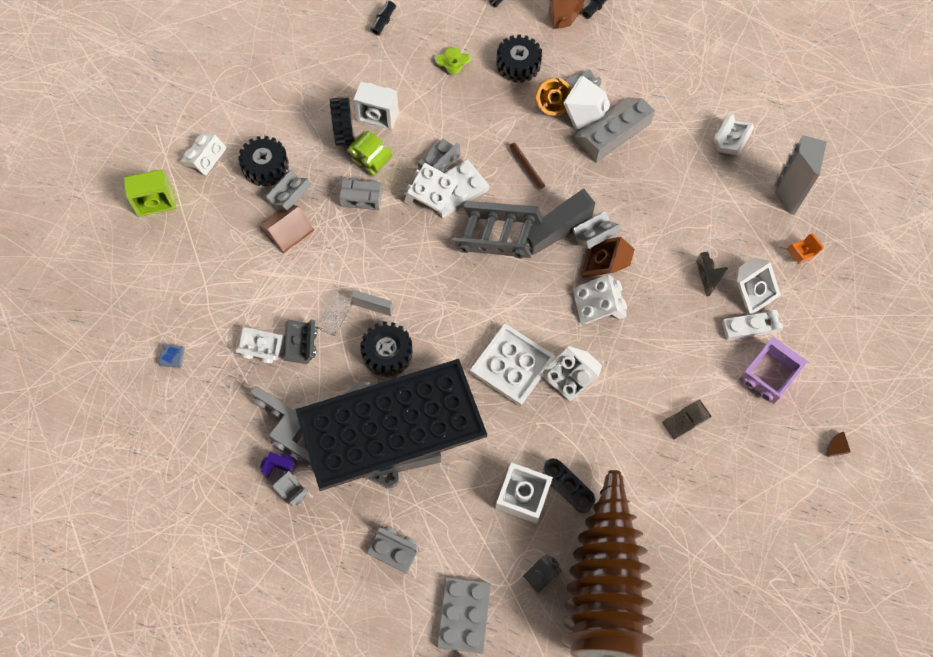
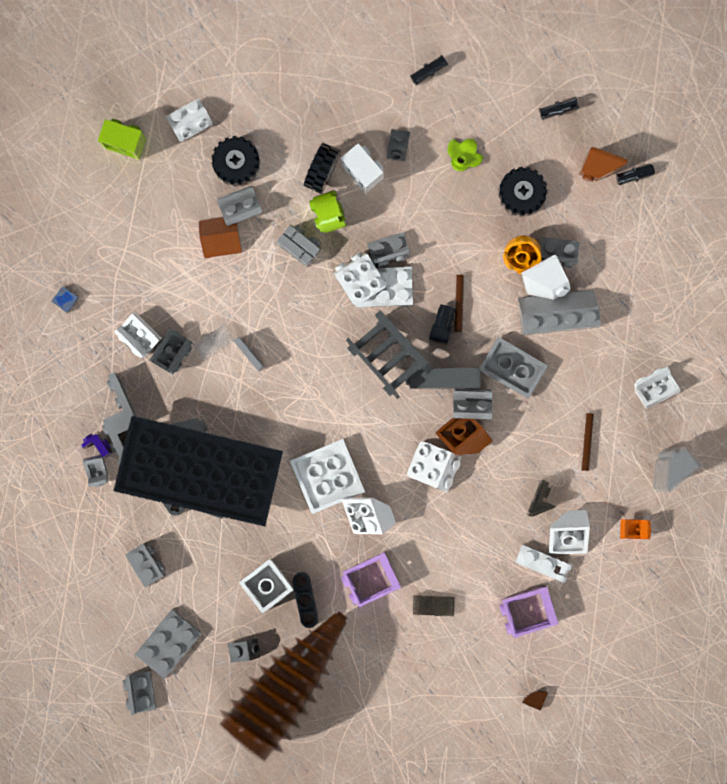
camera: 35 degrees right, 20 degrees up
(387, 339) = (227, 405): black wheel -> none
(395, 79) = (398, 145): none -> dark grey bracket
(526, 190) = (442, 328): none -> black piece
(610, 185) = (513, 367): none -> light grey plate
(627, 413) = (354, 596): none -> lavender window
(711, 209) = (587, 442): none -> reddish brown bar

